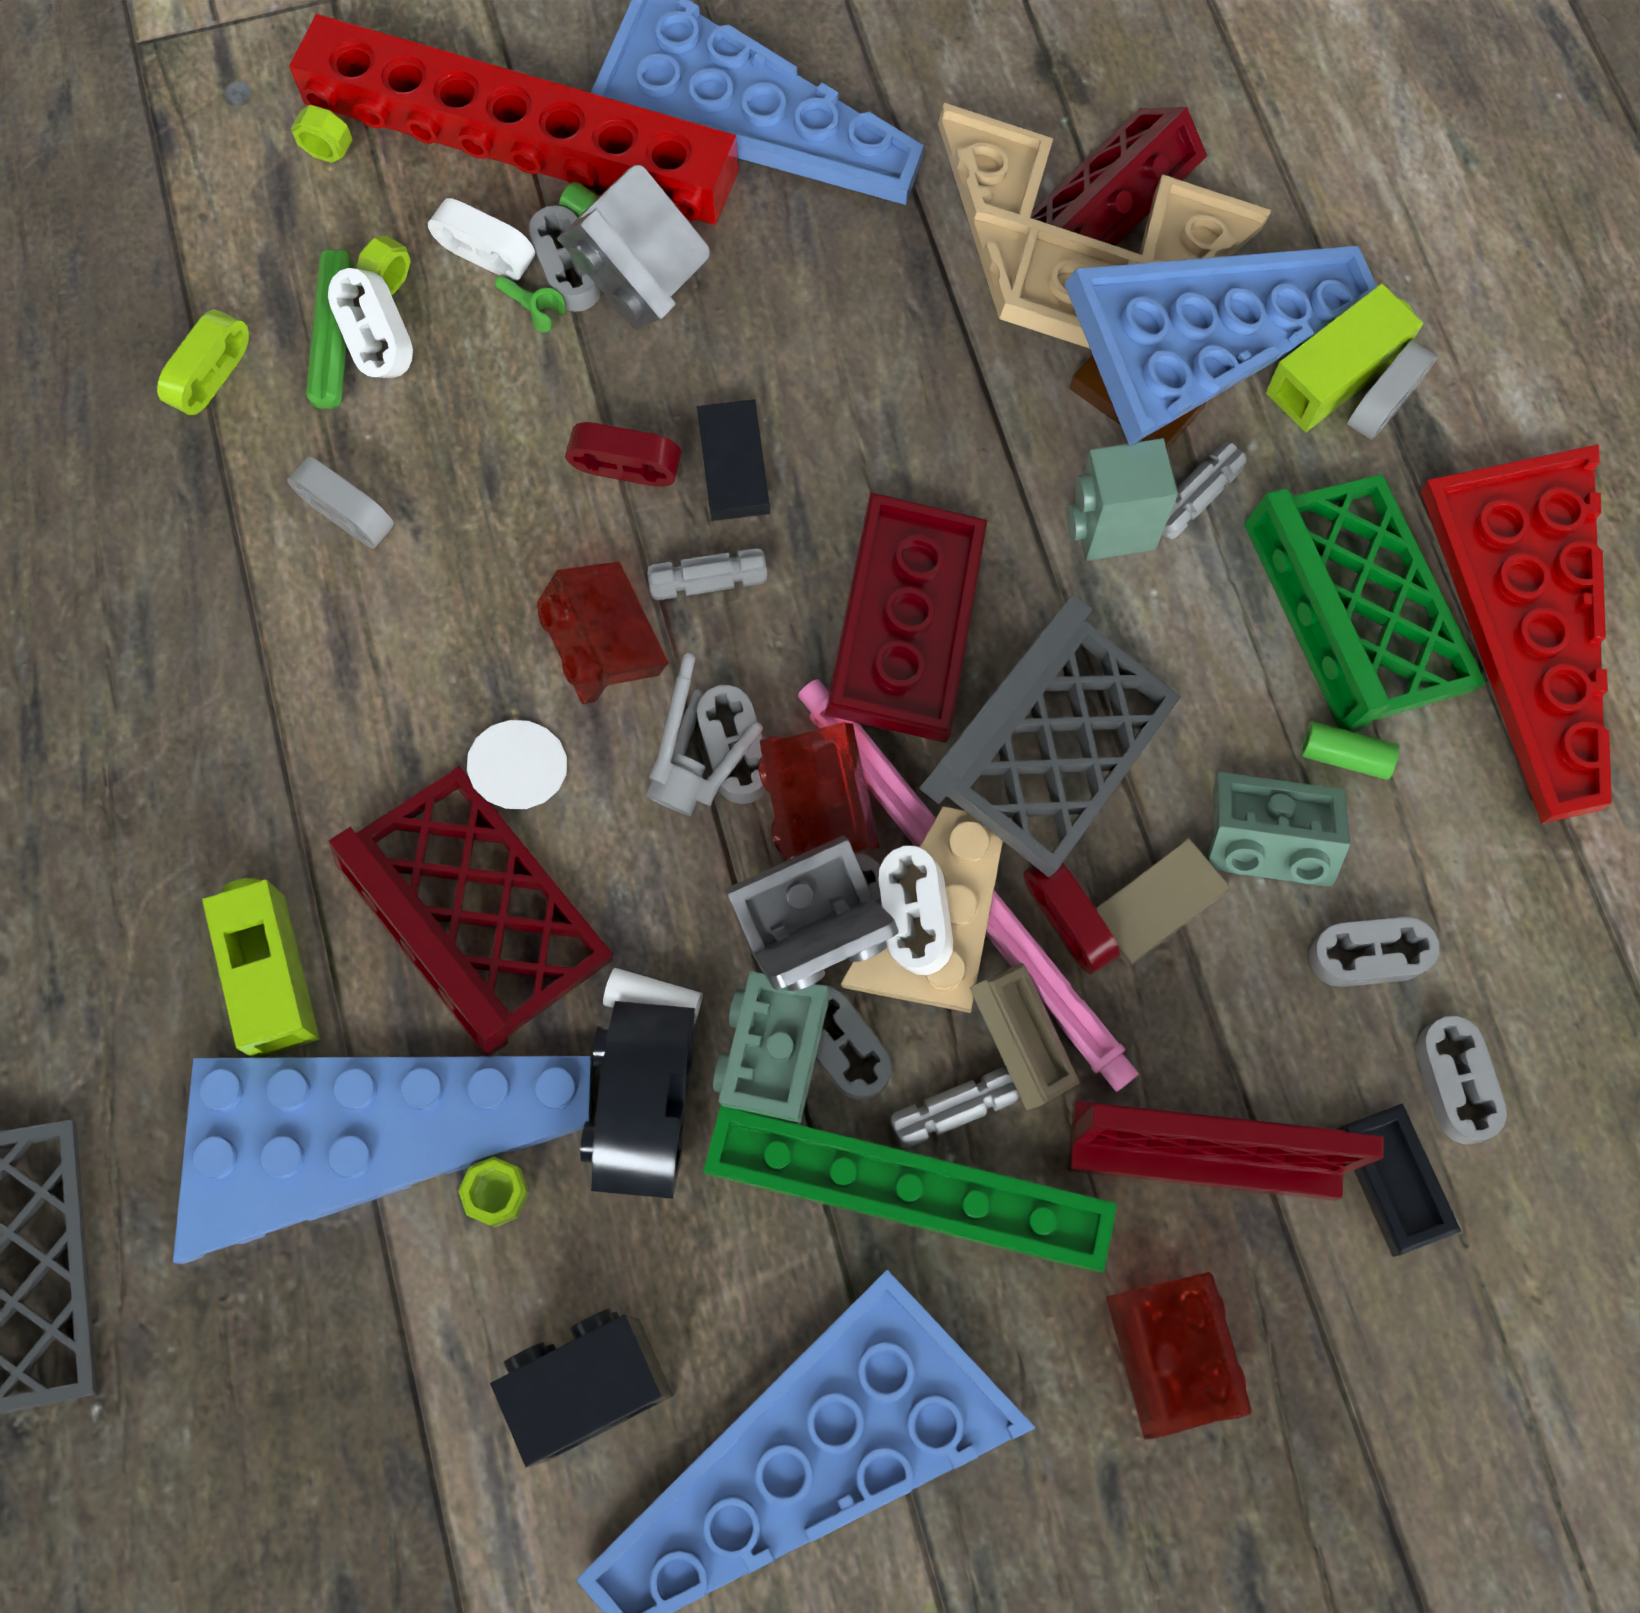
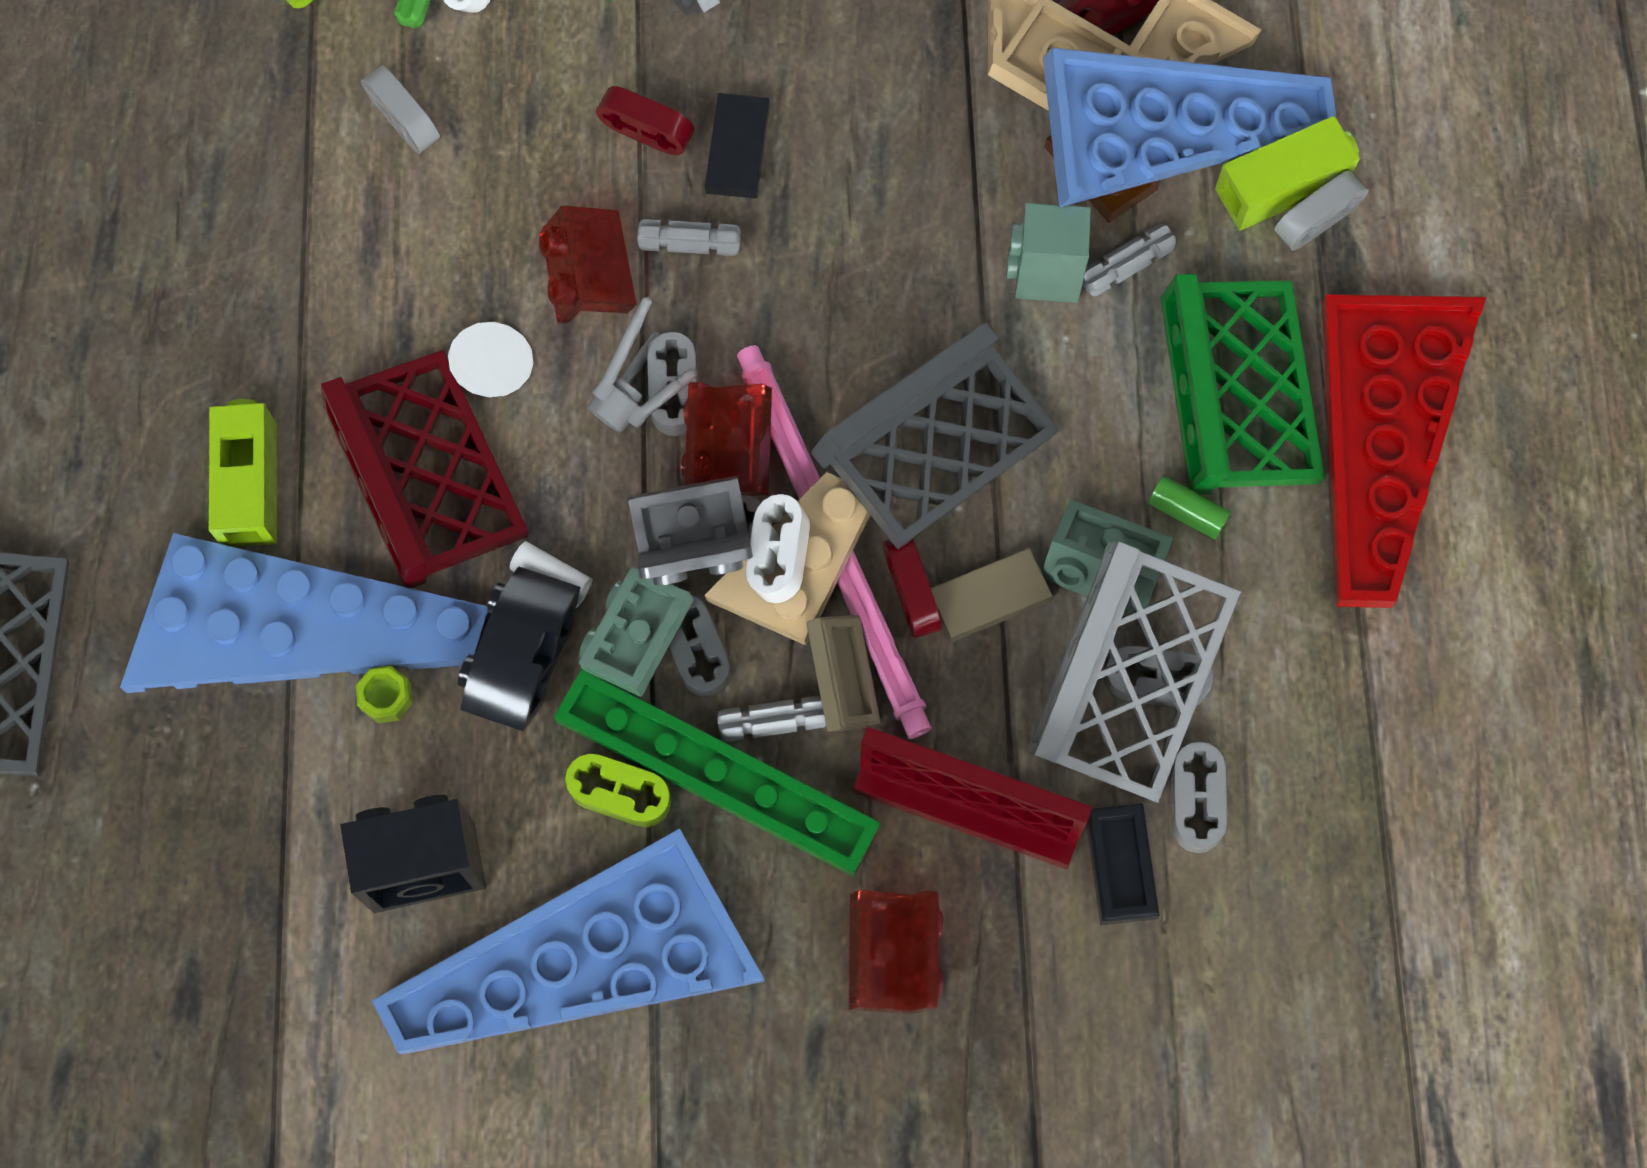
camera: 15 degrees right, 0 degrees up
(800, 1221) = (622, 777): none -> lime beam
(907, 618) = (845, 310): dark red tile -> none
(1296, 956) = (1087, 654): none -> light grey fence

